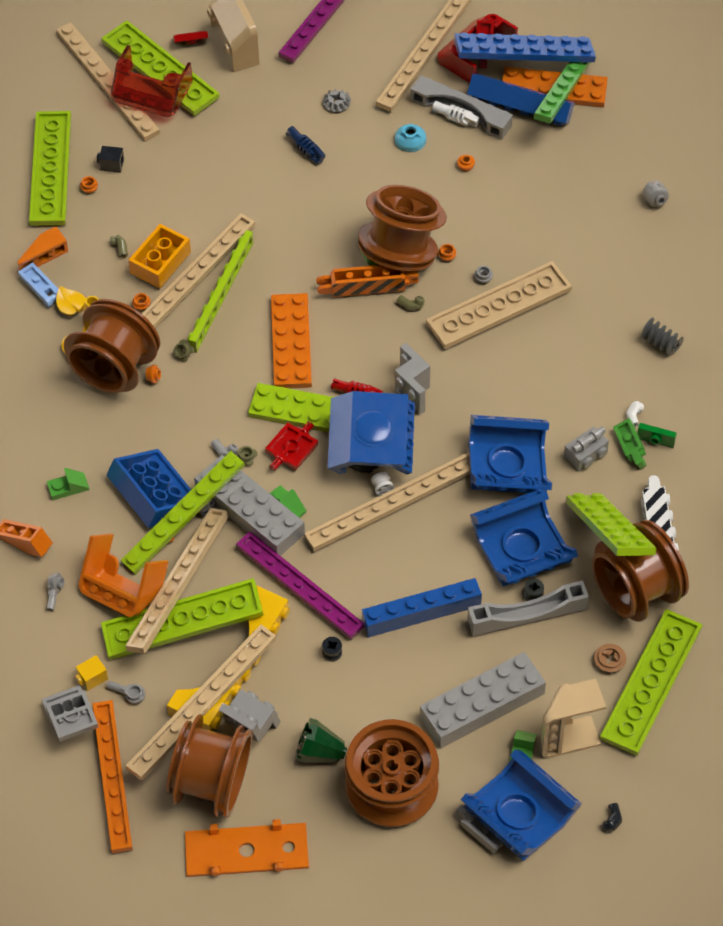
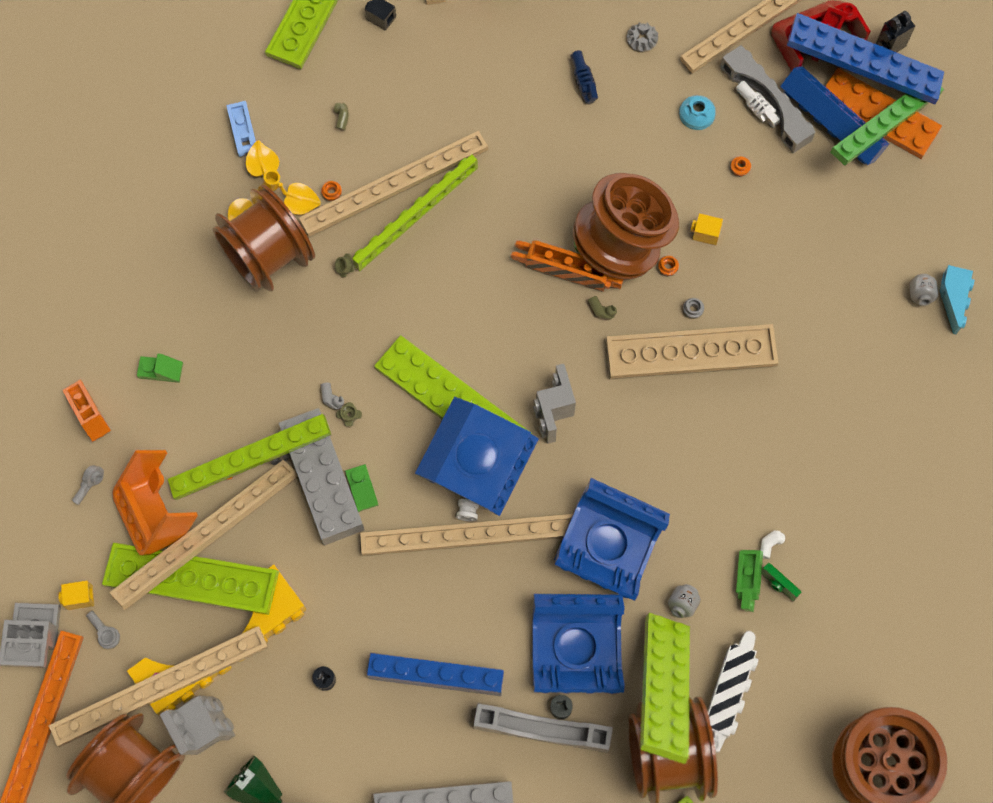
camera: 25 degrees right, 15 degrees up
(44, 249) = (265, 89): orange slope -> none
(89, 184) = (345, 28): orange plate -> none
(148, 484) = (237, 407): blue slope -> none
(153, 374) = (301, 279): orange plate -> none
(159, 256) = (372, 147): light orange brick -> none
(291, 340) = (458, 300): orange plate -> none
(291, 446) = (398, 424): red plate -> none
(300, 585) = (328, 590): magenta plate -> none
(345, 387) = (497, 389): red hinge -> none
(464, 215) = (706, 229): none -> yellow brick
(538, 20) = (896, 32): none -> black hinge
(587, 448) = (699, 565): light grey brick -> none
(589, 478) = (684, 601): none -> light grey head
(661, 338) = (843, 466): dark grey piece -> none
(679, 185) = (954, 293): none -> medium azure slope

